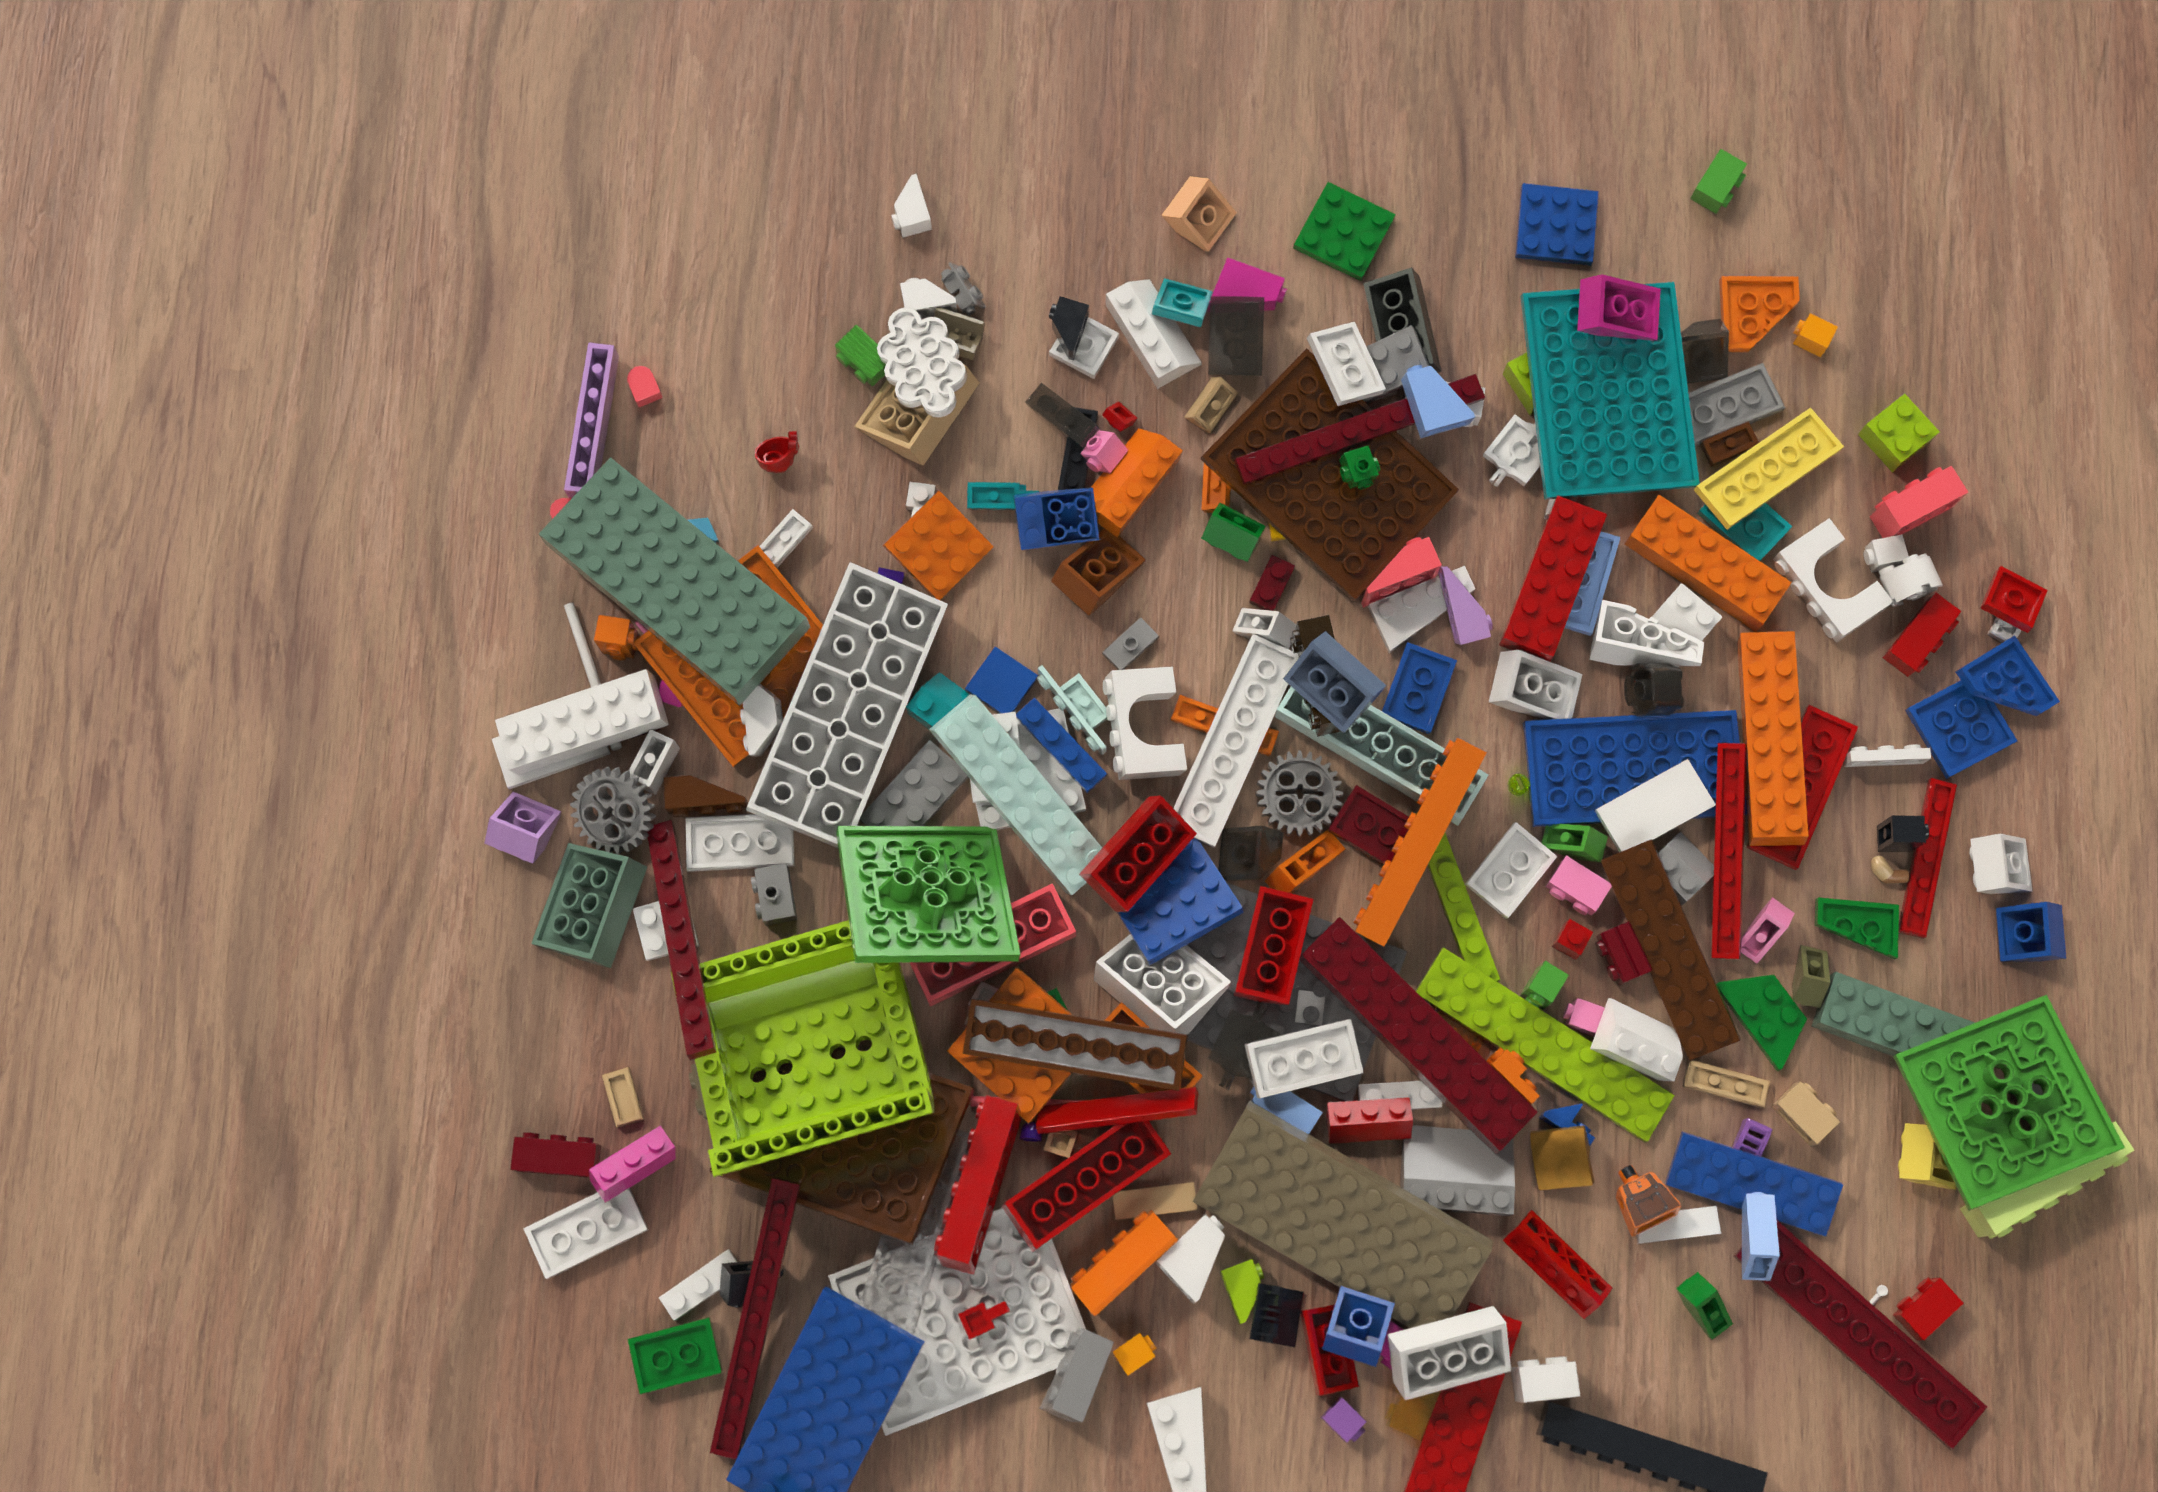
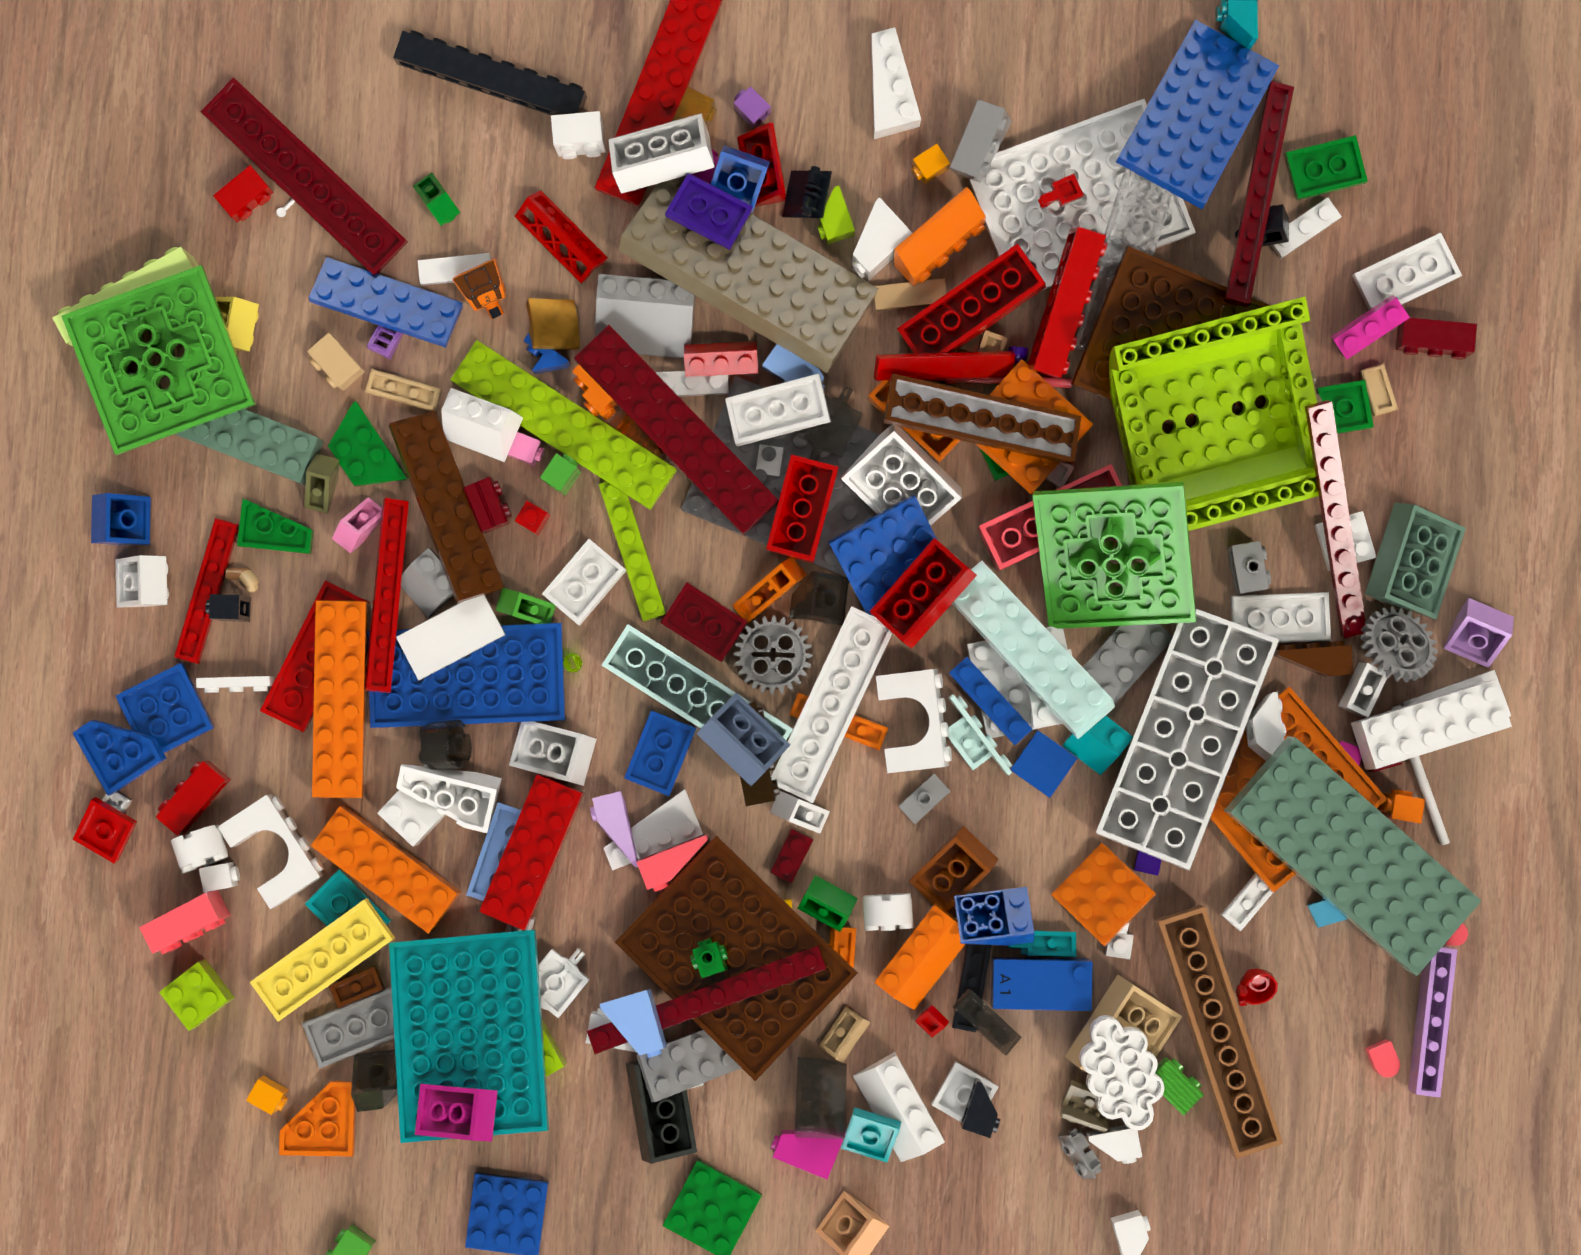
camera: 175 degrees left, 10 degrees up
(662, 1075) = (1349, 405): none -> green plate
(818, 410) = (1218, 1031): none -> medium nougat brick
(1004, 454) = (1041, 983): none -> blue brick
(1103, 452) = (948, 984): bright pink brick -> none
(1169, 523) = (887, 911): none -> white brick
(1346, 363) = (718, 1064): white plate -> none
(1392, 1281) = (709, 211): none -> dark purple plate
(1420, 841) = (665, 603): orange brick -> none
(1578, 886) = (523, 566): bright pink brick -> none
(1759, 1237) = (386, 252): light blue slope -> none

